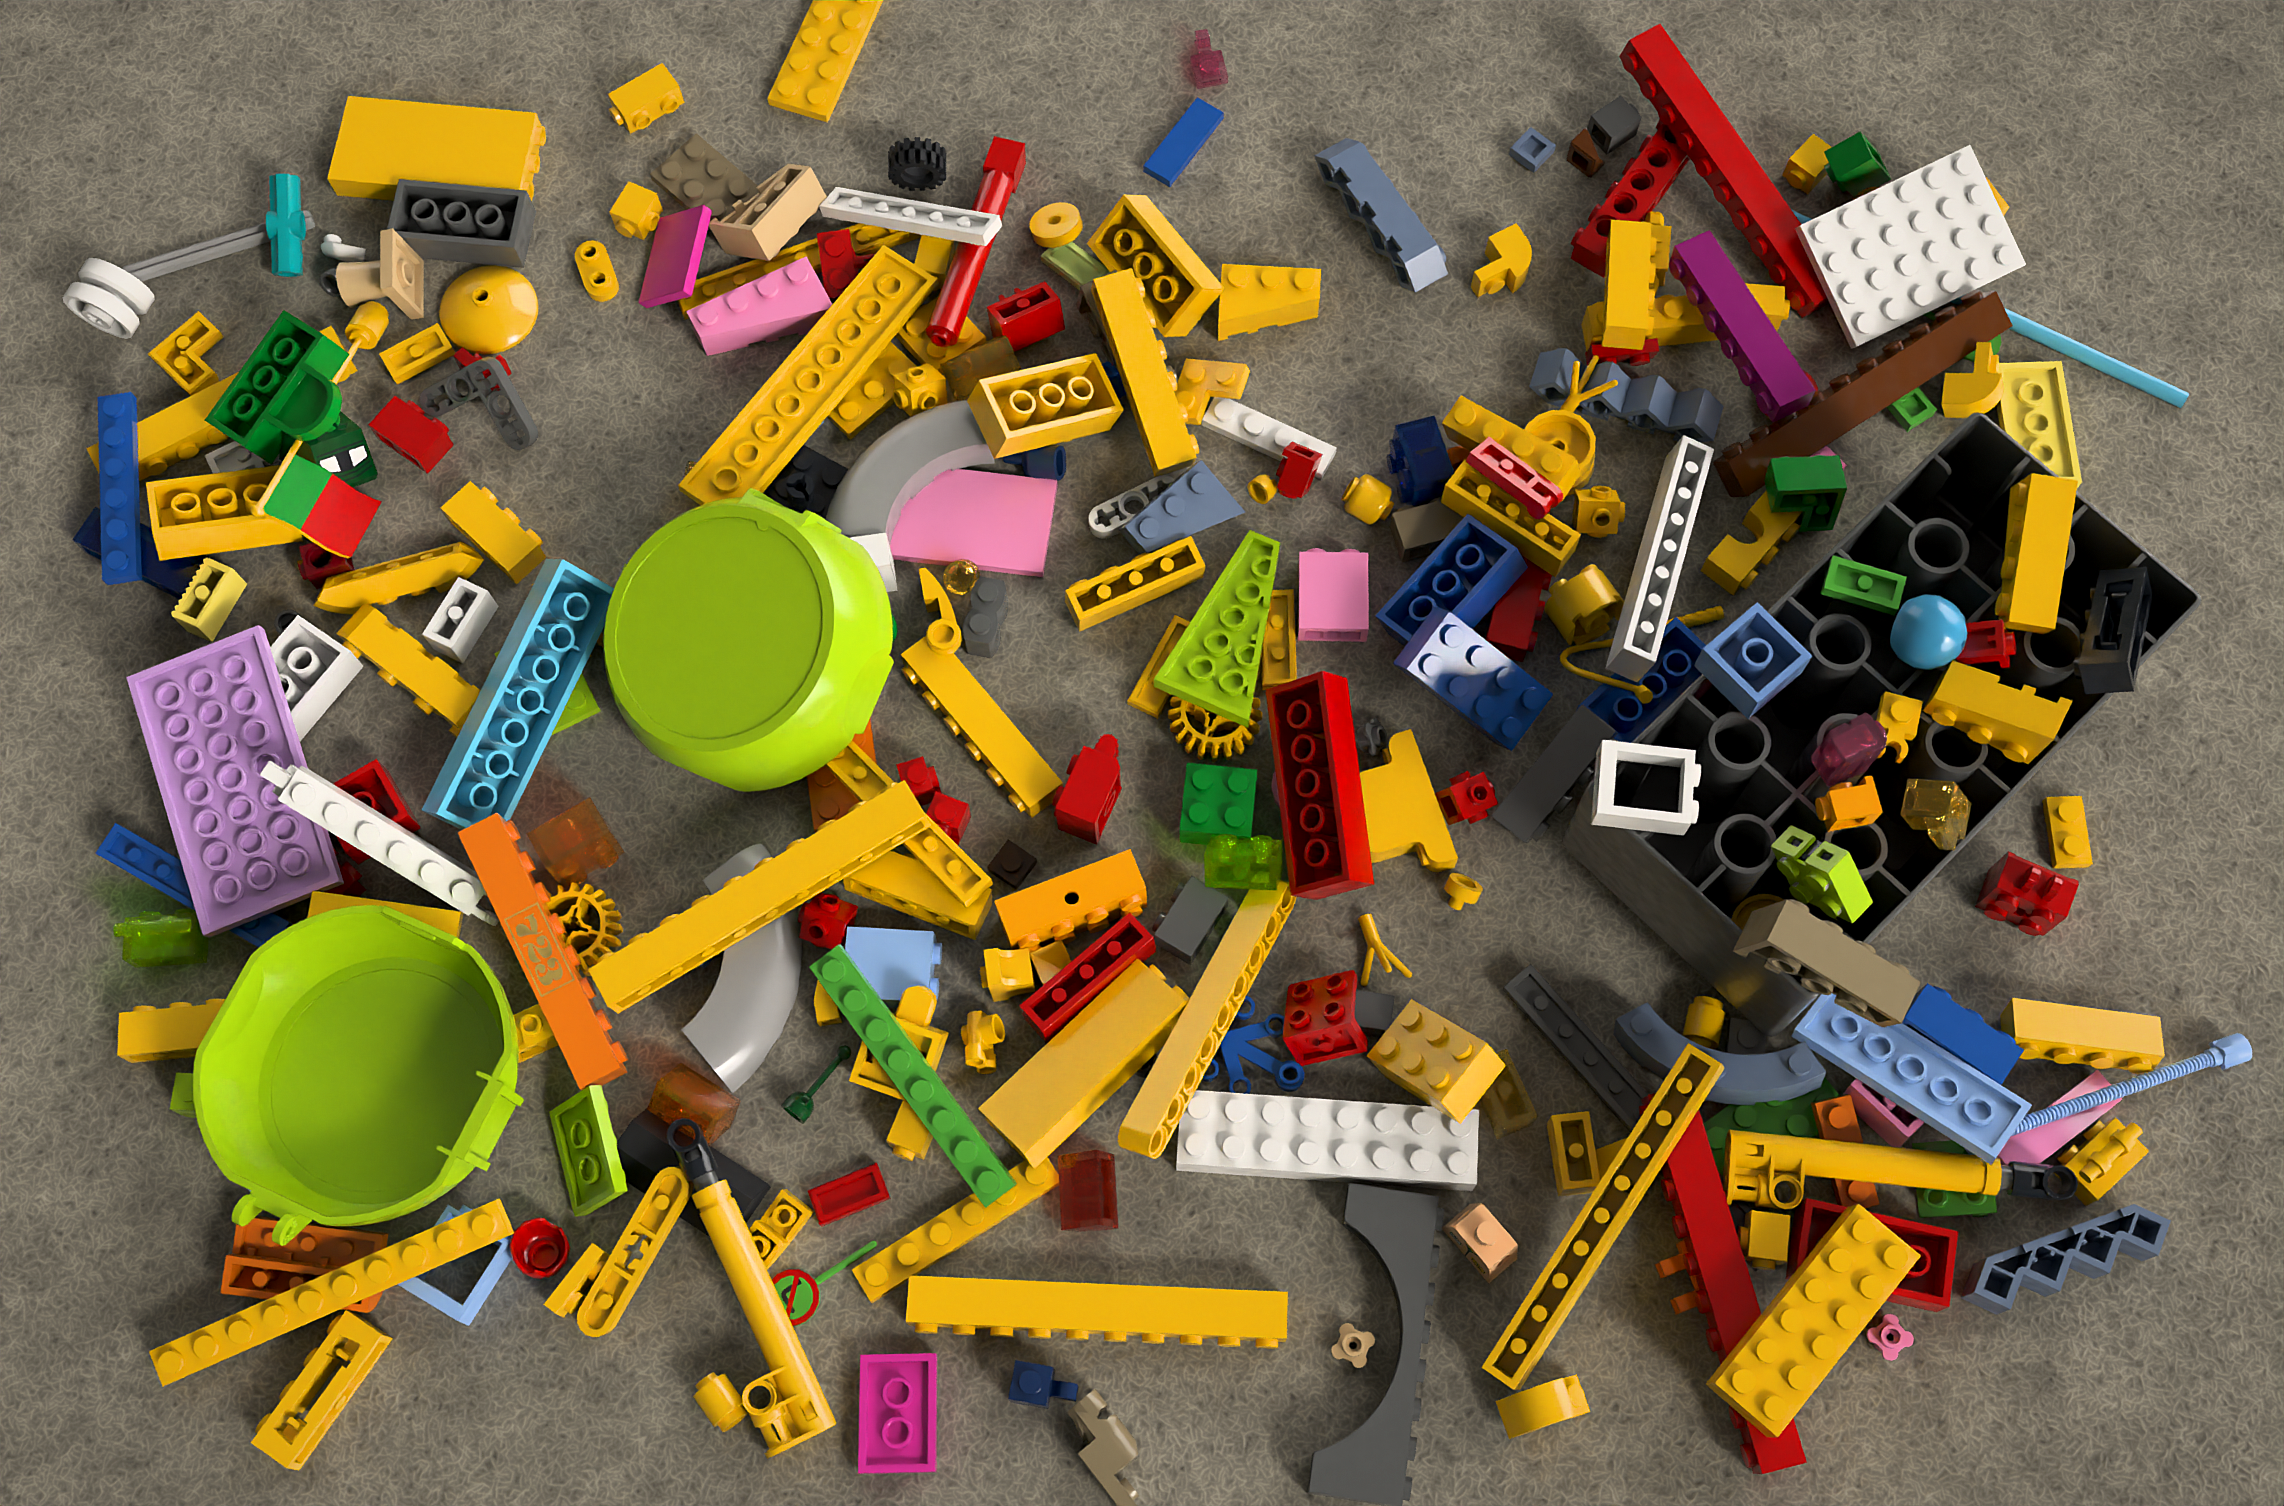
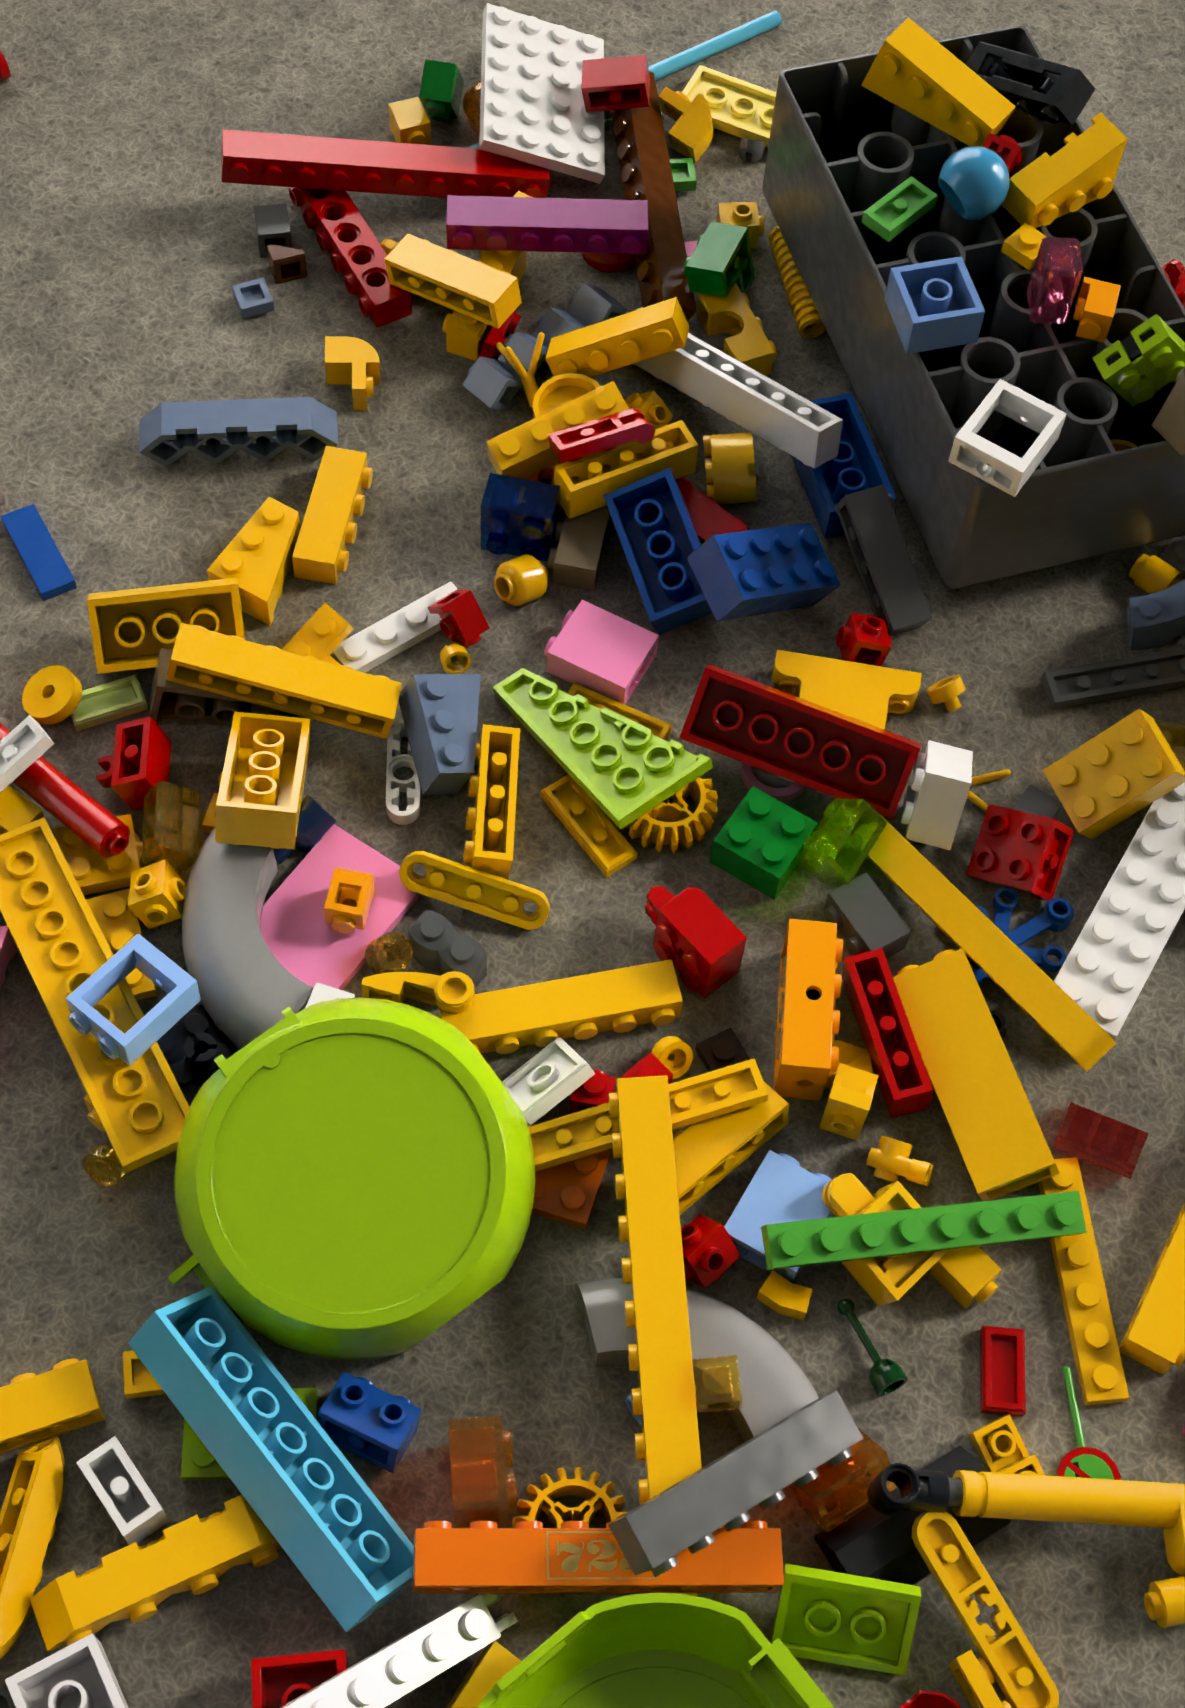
camera: 70 degrees left, 10 degrees down
(586, 752) = (369, 1421): none -> blue brick
(631, 1017) = (734, 1484): none -> dark grey brick
(708, 972) = (717, 1383): none -> clear yellow brick
(800, 444) = (139, 954): none -> light blue window
(906, 739) = (547, 1079): none -> white tile
(984, 825) = (674, 1055): none -> yellow tile
(986, 513) = (349, 900): none -> light orange brick
(1049, 609) = (474, 890): none -> yellow plate
(1330, 920) = (937, 794): none -> white brick
(1345, 325) = (331, 515): none -> yellow brick
(1641, 692) = (851, 454): yellow piece -> none
(1644, 446) = (619, 340): none -> yellow brick
(1877, 482) = (744, 215): none -> yellow brick
(1937, 808) = (1132, 255): clear yellow brick -> none
(1952, 297) = (615, 83): none -> brick

